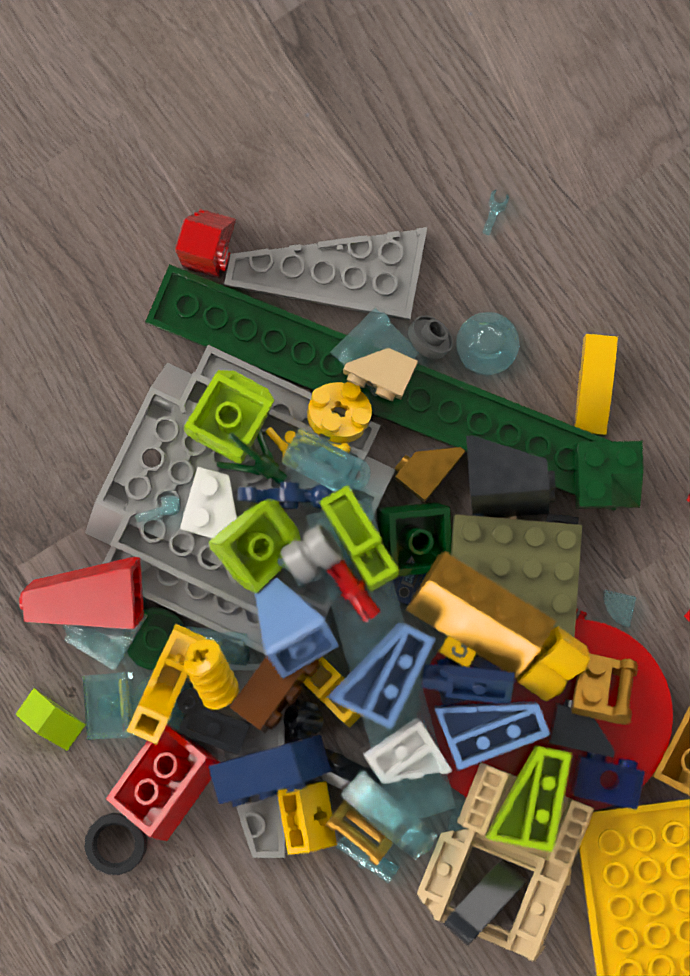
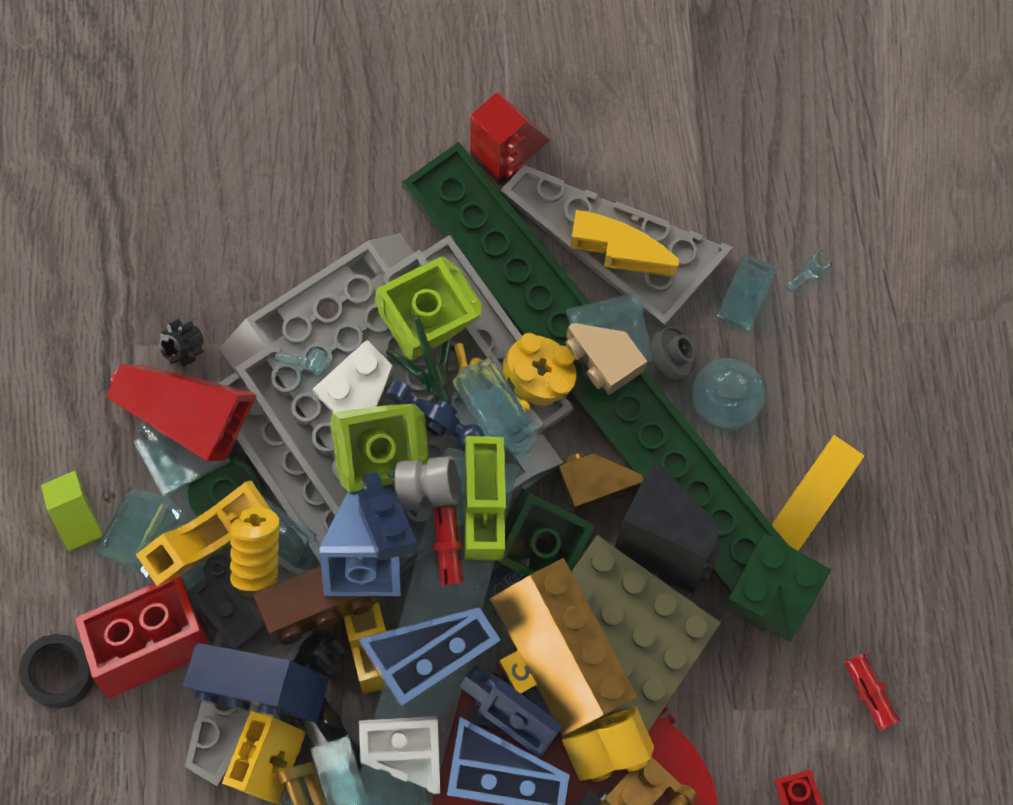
camera: 25 degrees right, 10 degrees down
(54, 546) = (181, 342): none -> black gear
(299, 601) = (385, 519): none -> dark blue hinge
(343, 276) = (623, 245): none -> yellow slope
(457, 257) = (747, 292): none -> clear light blue slope
(619, 607) = (712, 733): clear light blue tile -> none

